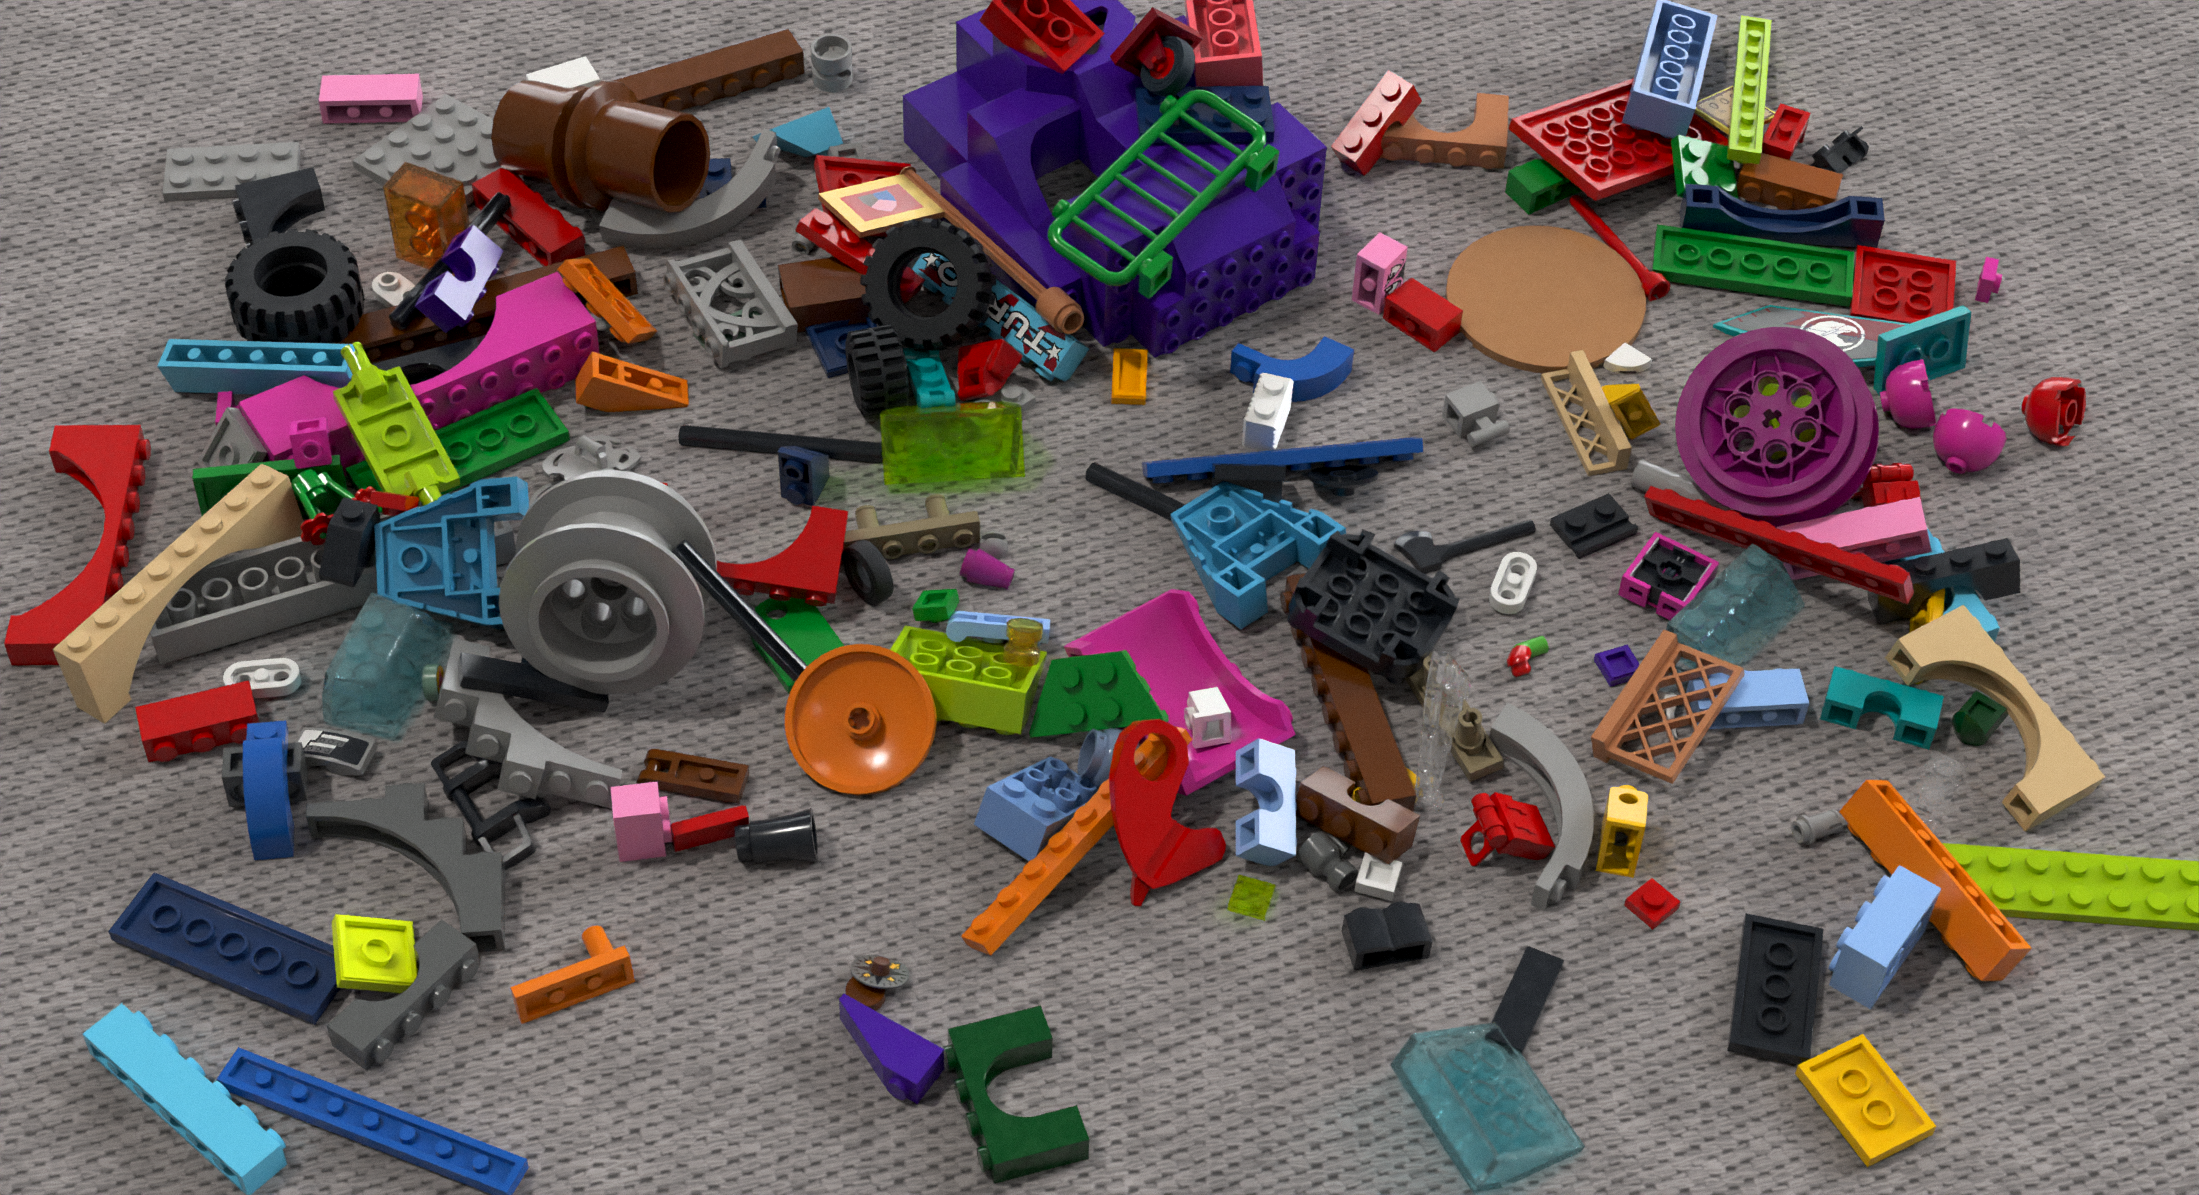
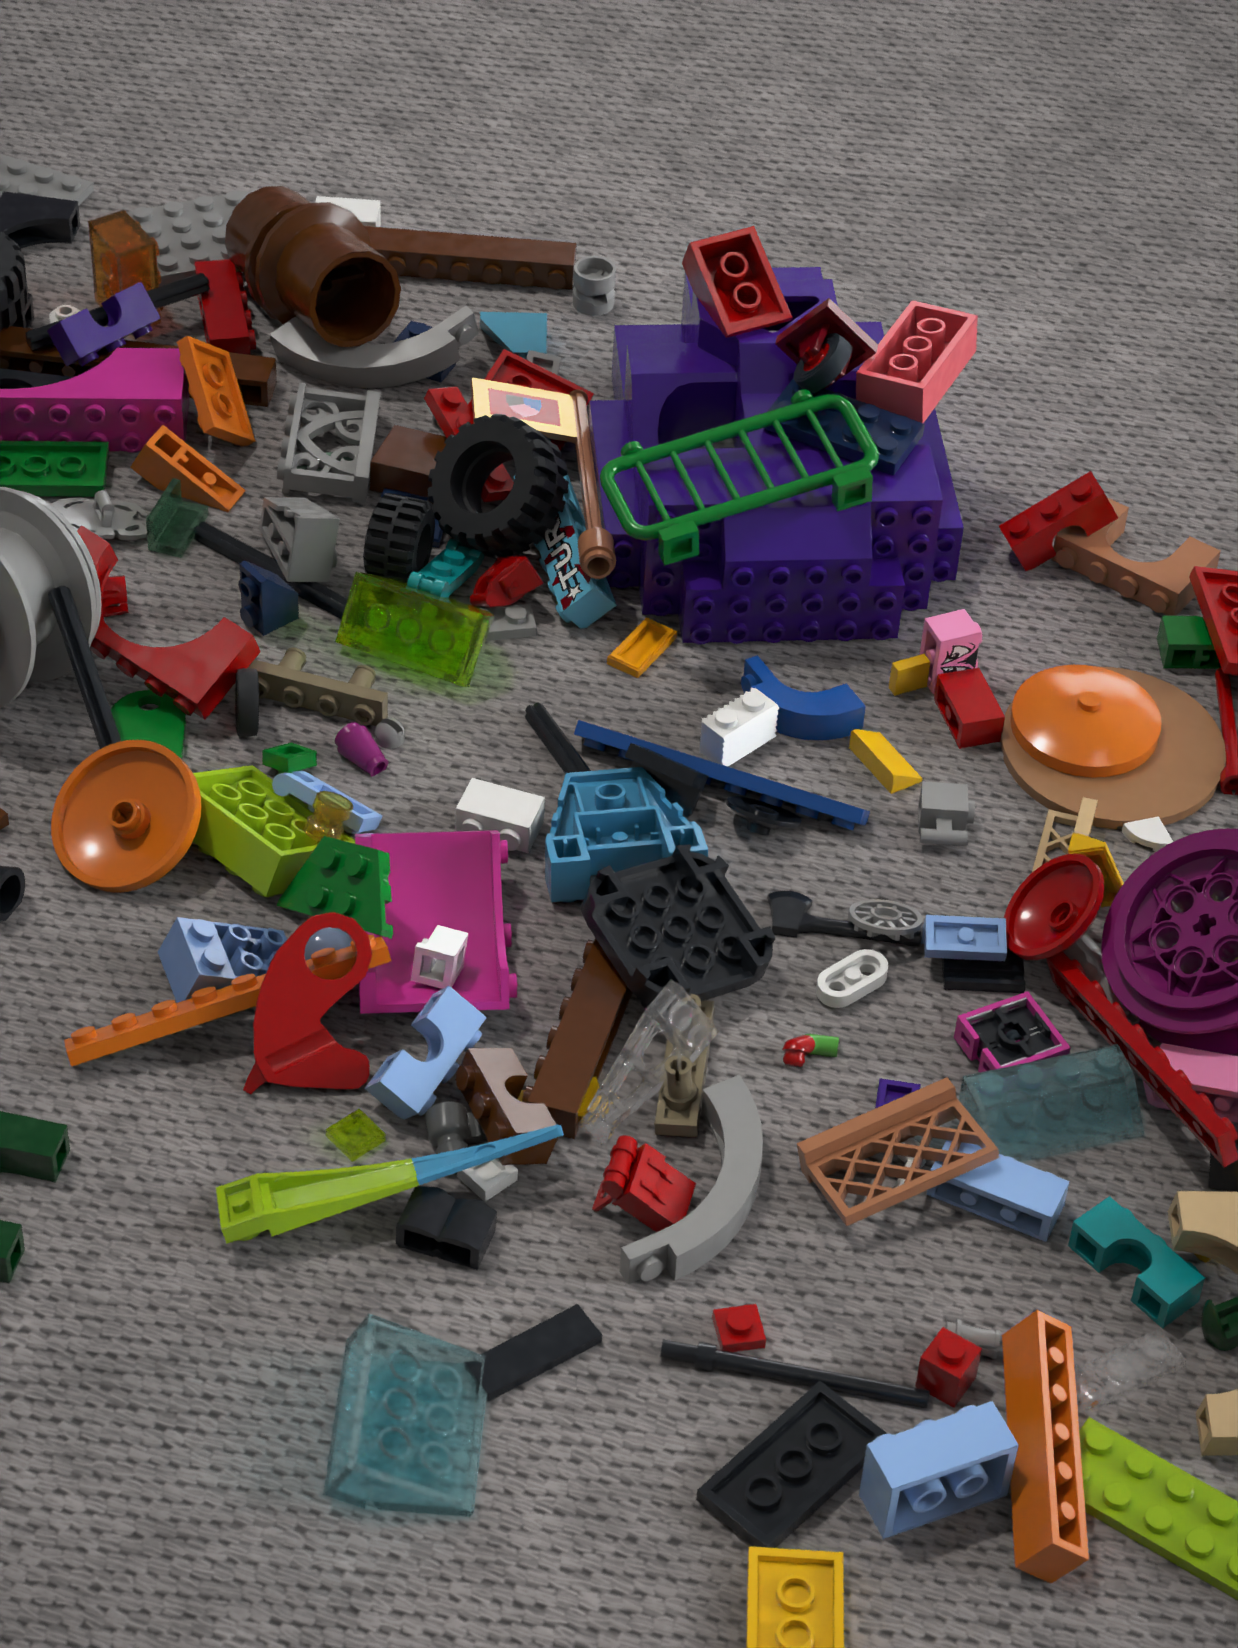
camera: 30 degrees right, 5 degrees down
(370, 98) = (178, 169): bright pink brick -> none
(659, 438) = (173, 522): none -> clear green panel
(786, 402) = (300, 537): none -> light grey wedge
(1143, 574) = (500, 808): none -> white brick
(1268, 969) = (299, 1198): none -> lime plate
(1356, 306) = (909, 674): none -> yellow tile
(1389, 389) = (883, 760): none -> yellow slope
(1502, 522) = (885, 918): none -> light grey wheel
(1516, 286) = (1085, 721): none -> orange dish
(1574, 510) = (964, 938): none -> light blue panel
(1616, 451) = (1054, 907): none -> red dish
(1627, 814) = (756, 1242): yellow torso -> none
(1651, 936) = (706, 1356): none -> black bar
(1823, 855) = (948, 1367): none -> red brick

